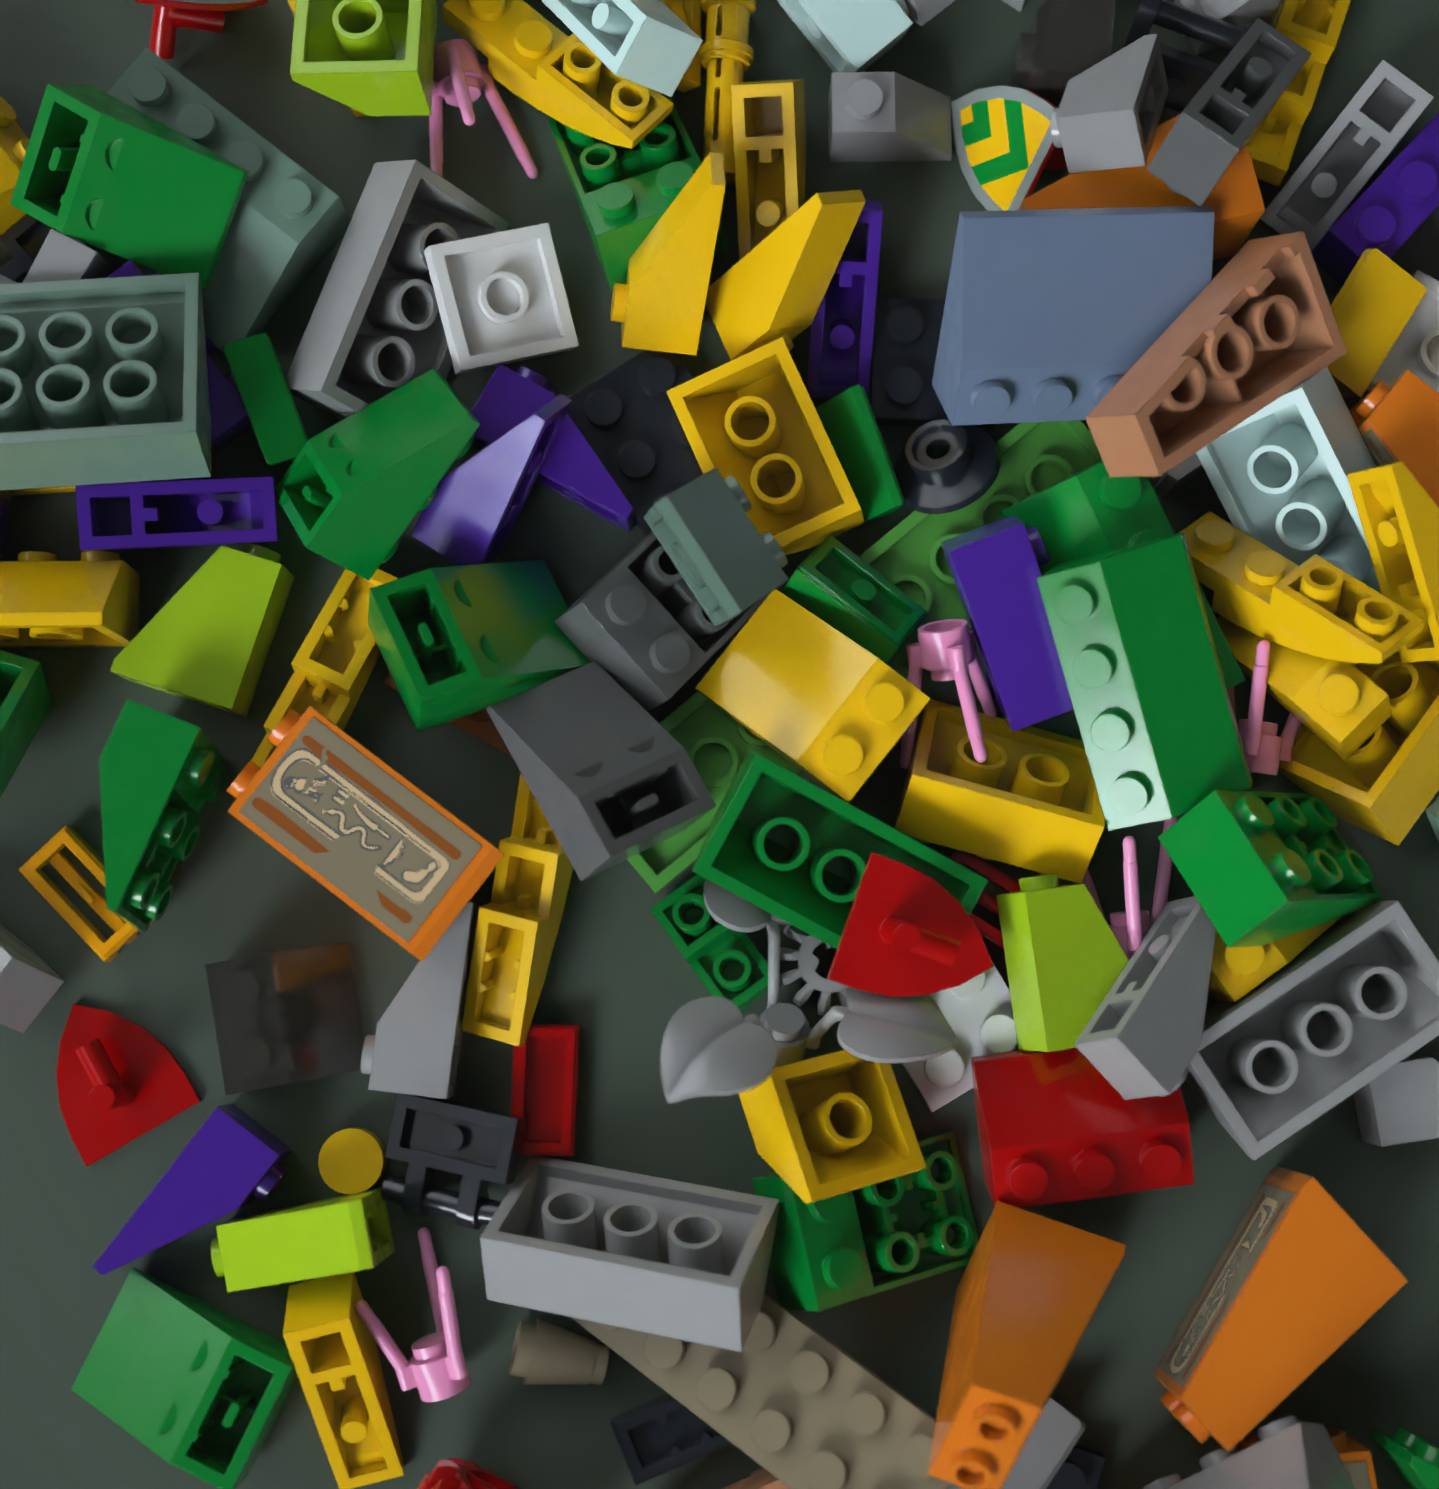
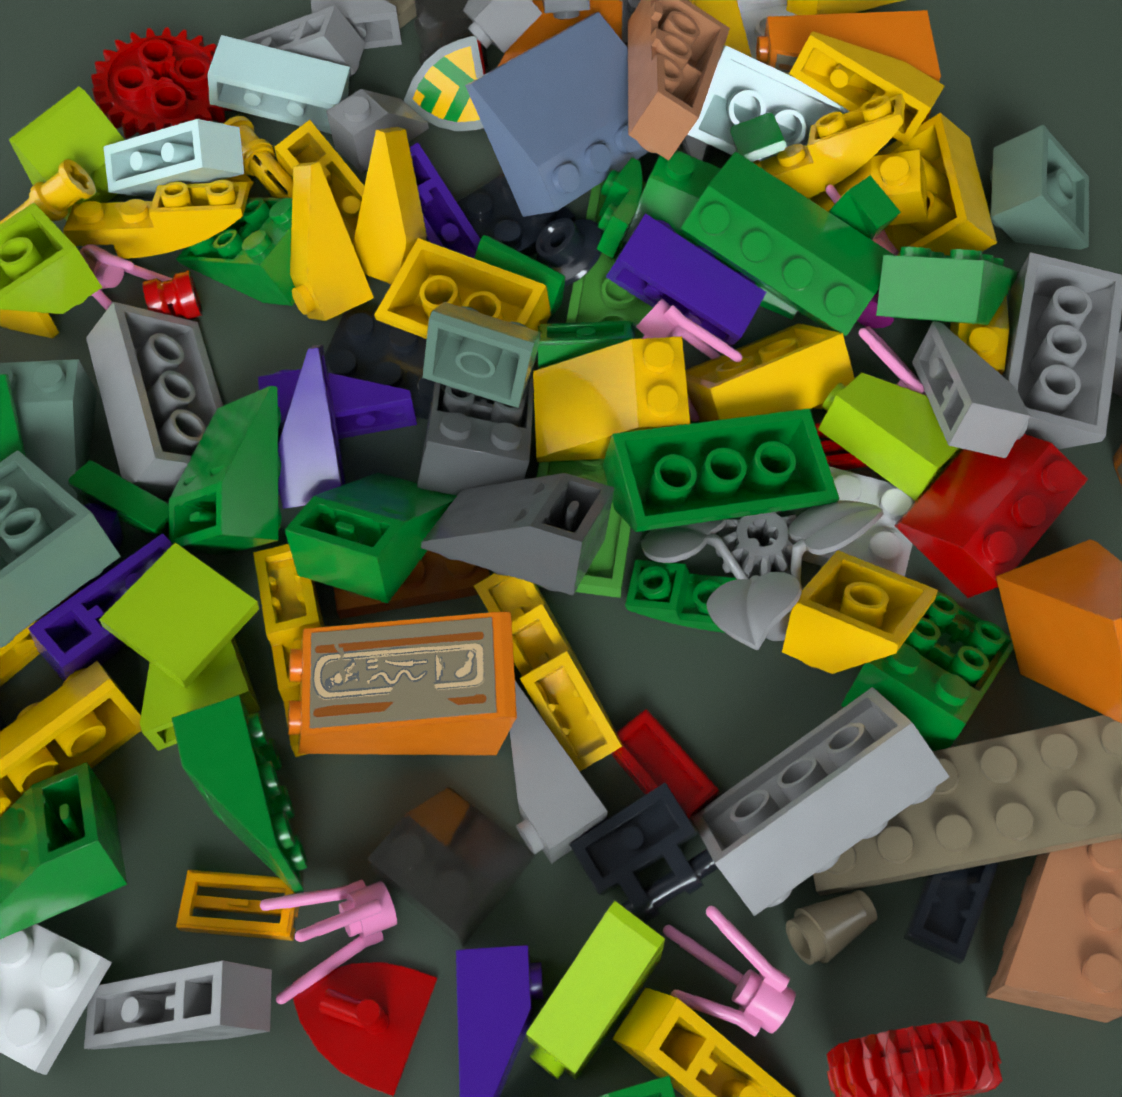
camera: 40 degrees left, 20 degrees down
(177, 999) = (364, 913): none -> bright pink plant
(222, 582) = (179, 614): none -> lime tile
(352, 1160) = (575, 919): yellow tile -> none
(500, 179) = (173, 296): none -> red wheel
(501, 297) = (227, 348): white plate -> none
(906, 935) = (794, 470): red shield -> none
(1033, 471) = (622, 199): none -> green slope
(1250, 515) = (758, 137): none -> green slope
(1268, 710) = (866, 208): none -> green slope

